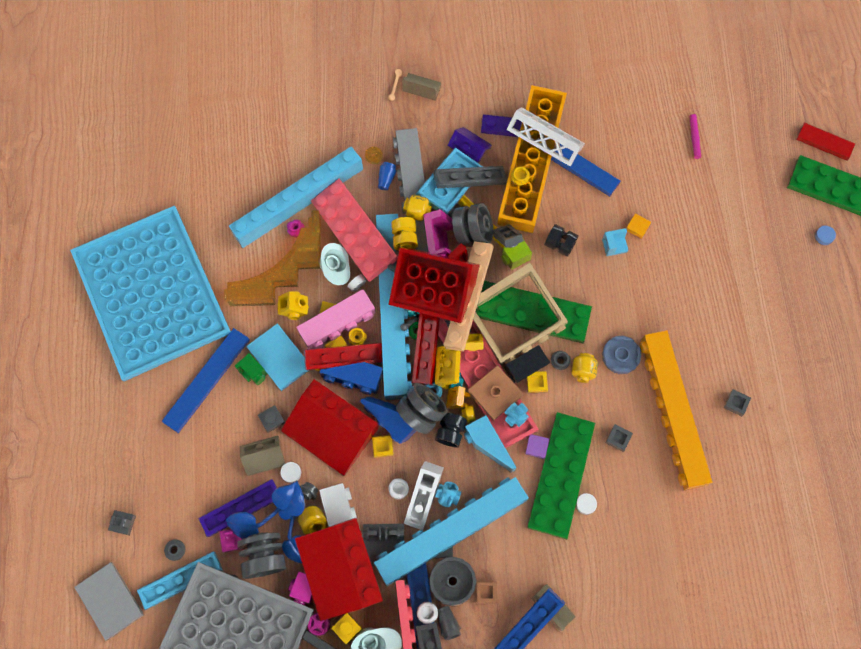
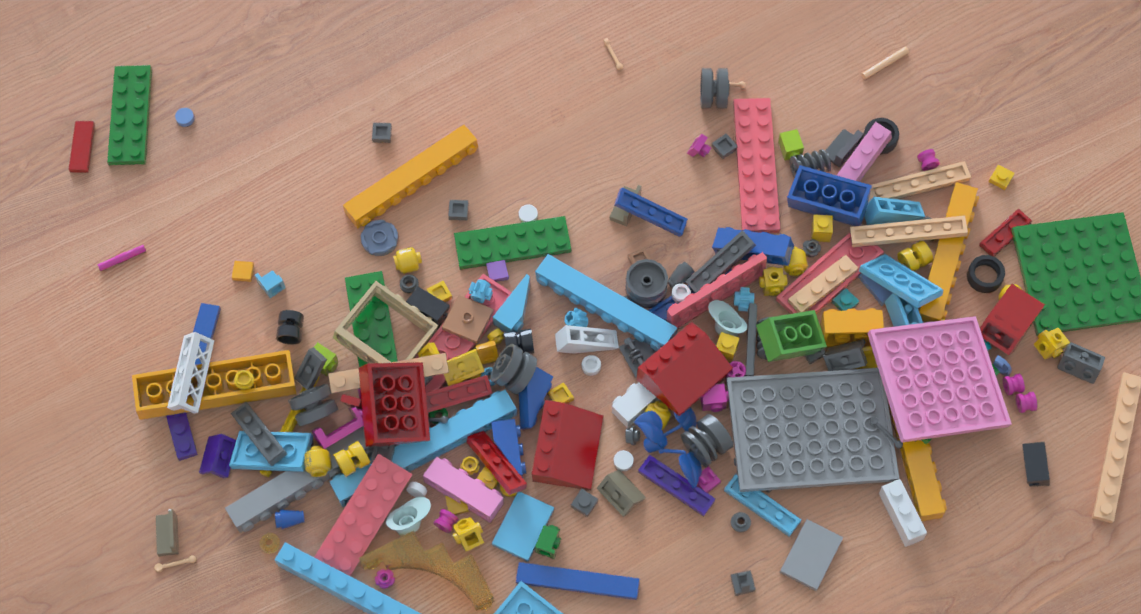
camera: 115 degrees left, 5 degrees down
(316, 294) = (445, 521): none -> dark pink wheel

